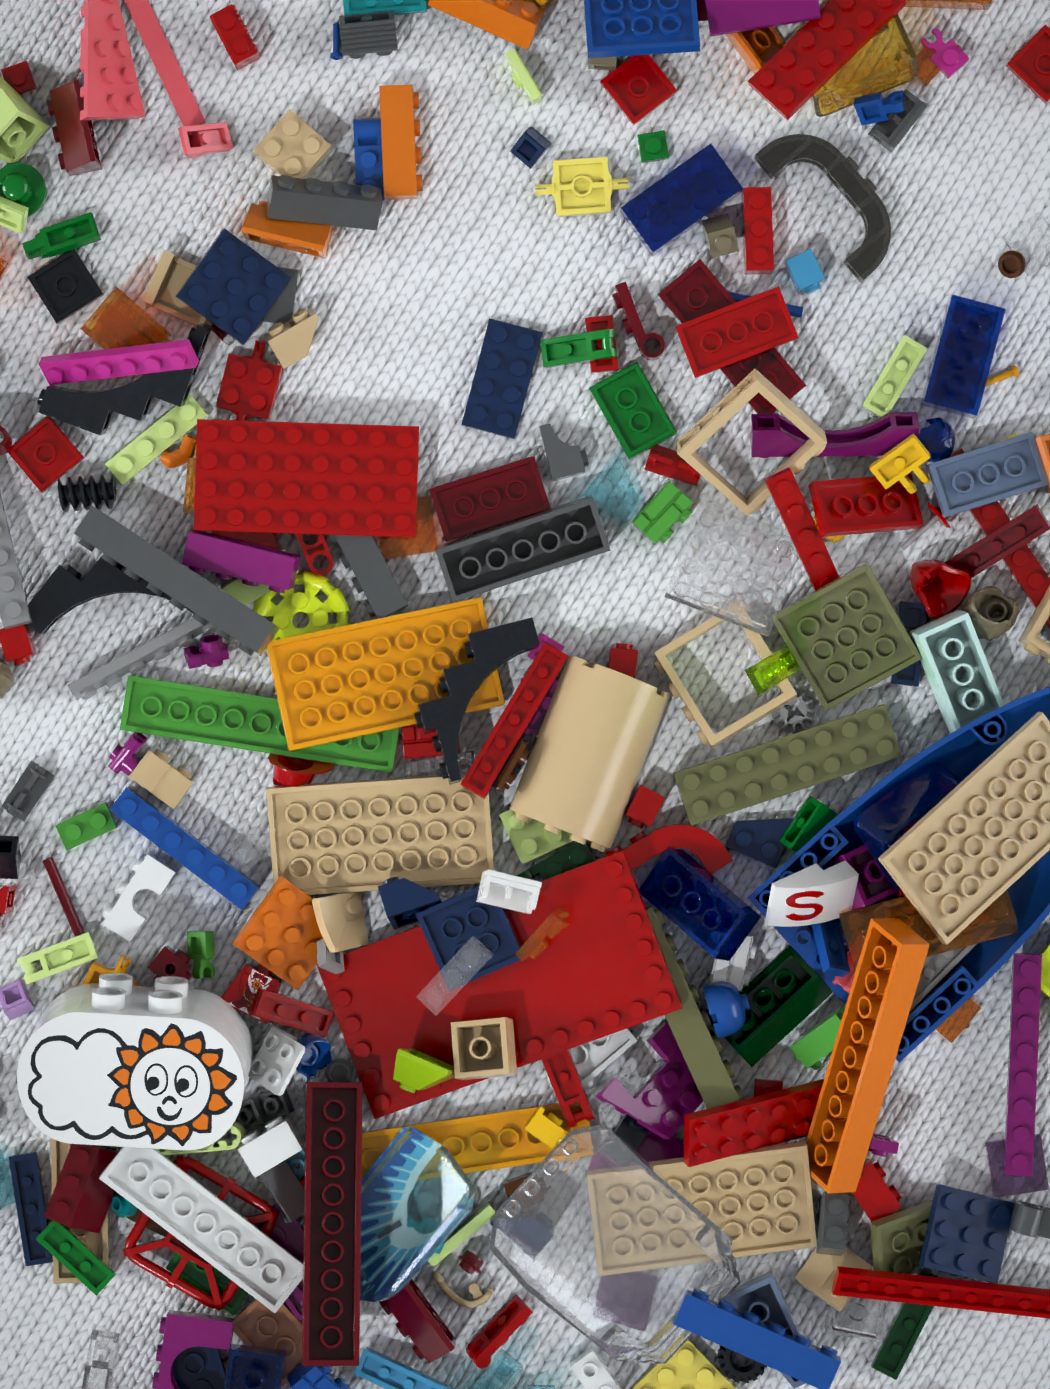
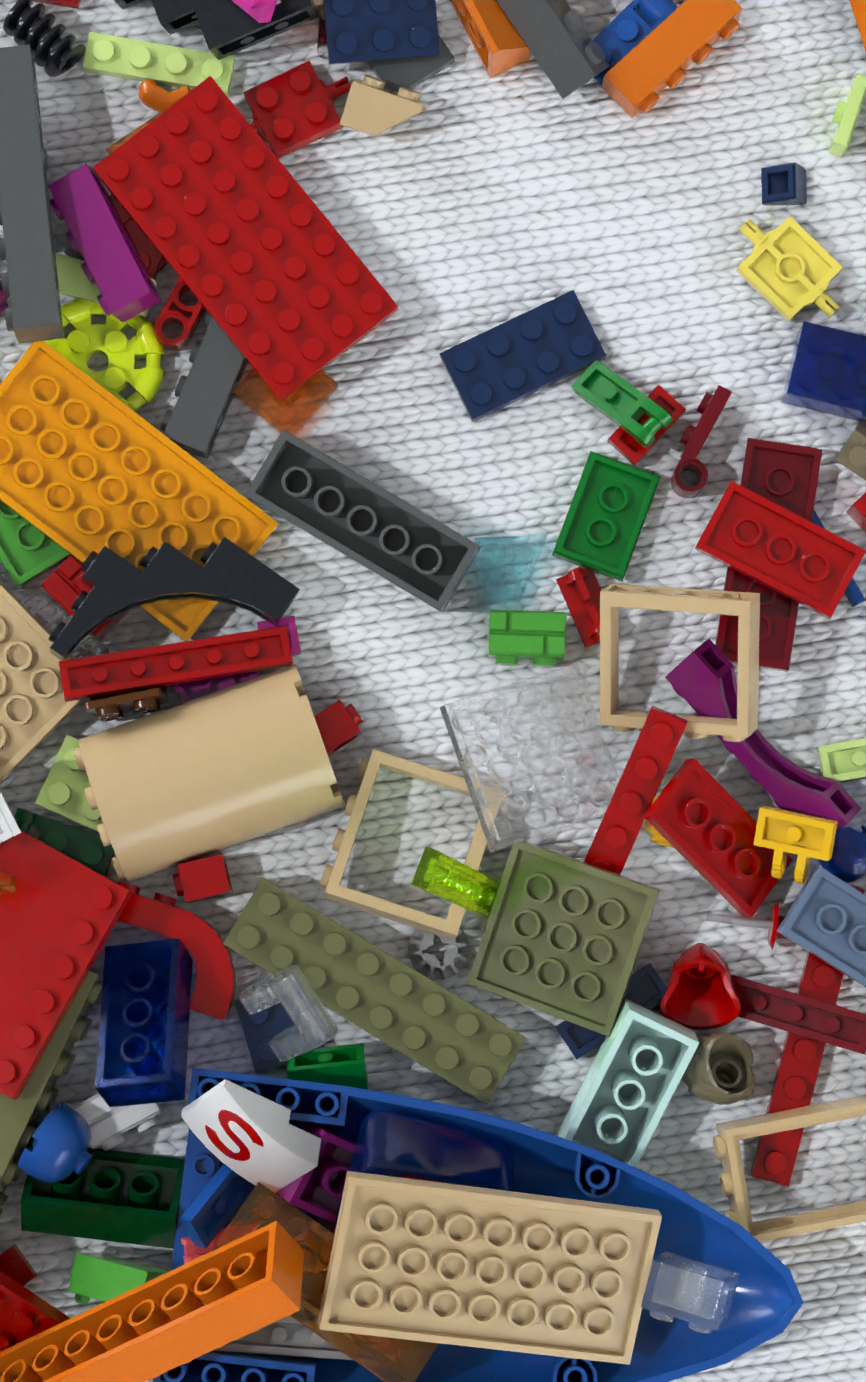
camera: 50 degrees right, 5 degrees down
(489, 498) = (388, 446): dark red plate -> none
(562, 458) = (493, 485): dark grey arch -> none
(776, 813) = (294, 992): none -> clear connector

